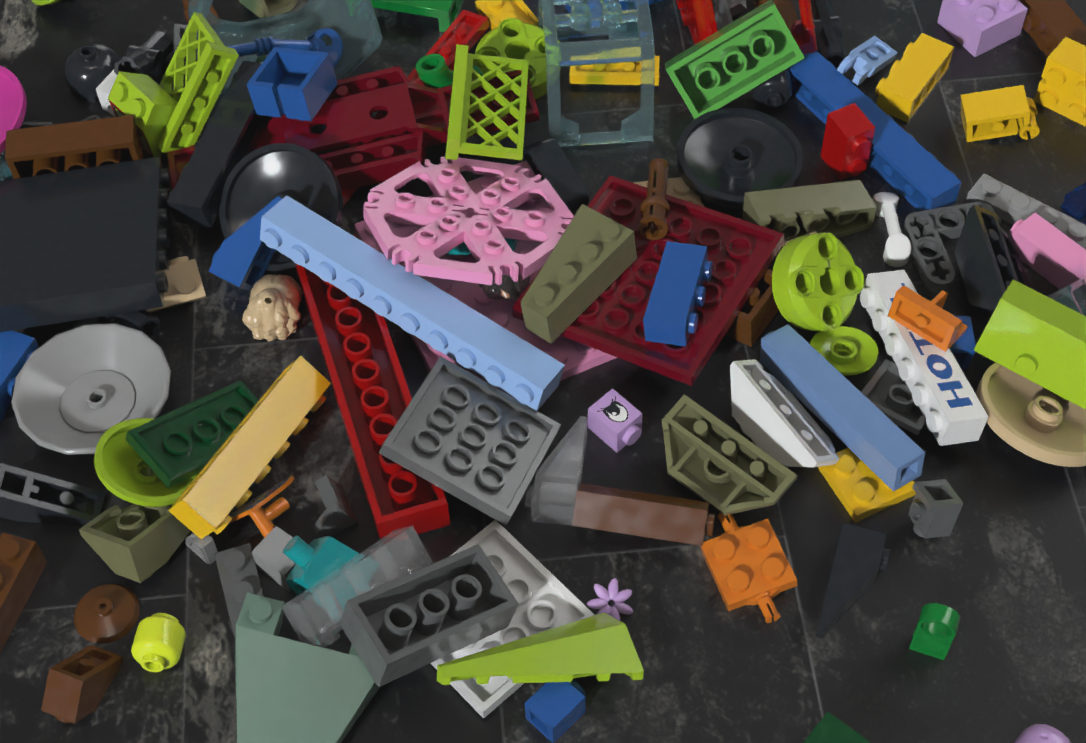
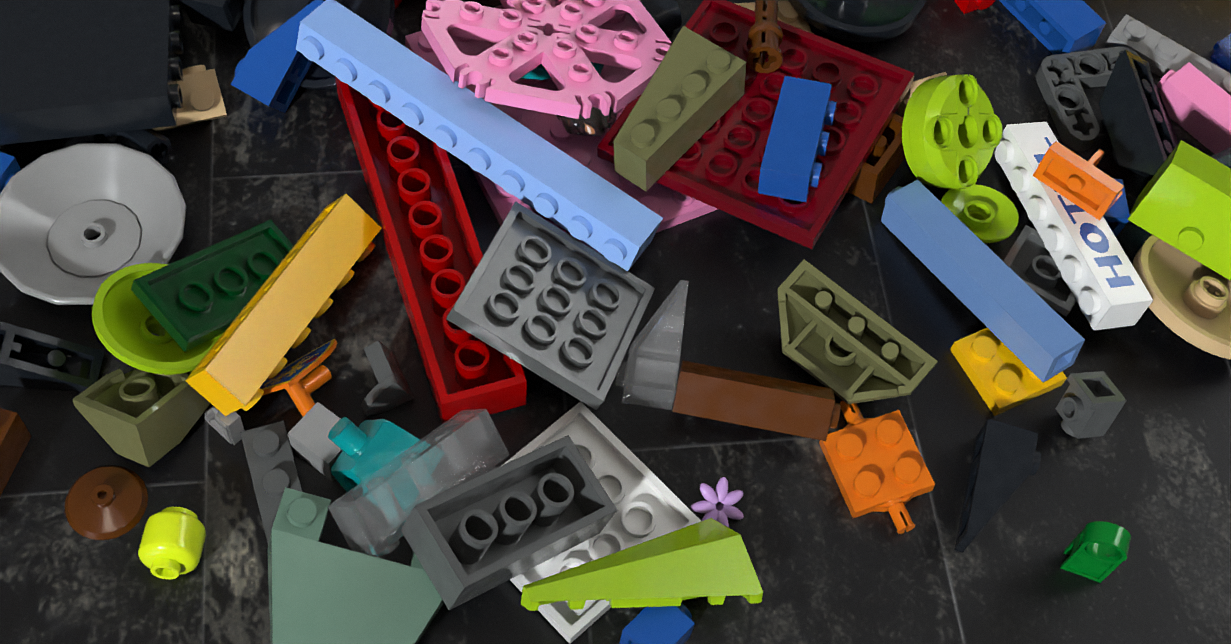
camera: 10 degrees left, 5 degrees up
(79, 683) = (73, 592): reddish brown slope -> none
(273, 307) = (309, 132): tan hair -> none
(615, 420) = (719, 286): lavender brick -> none
(776, 418) = (905, 292): white wedge -> none
(822, 208) = (940, 45): olive wedge -> none
(897, 246) = (1034, 93): white bar -> none

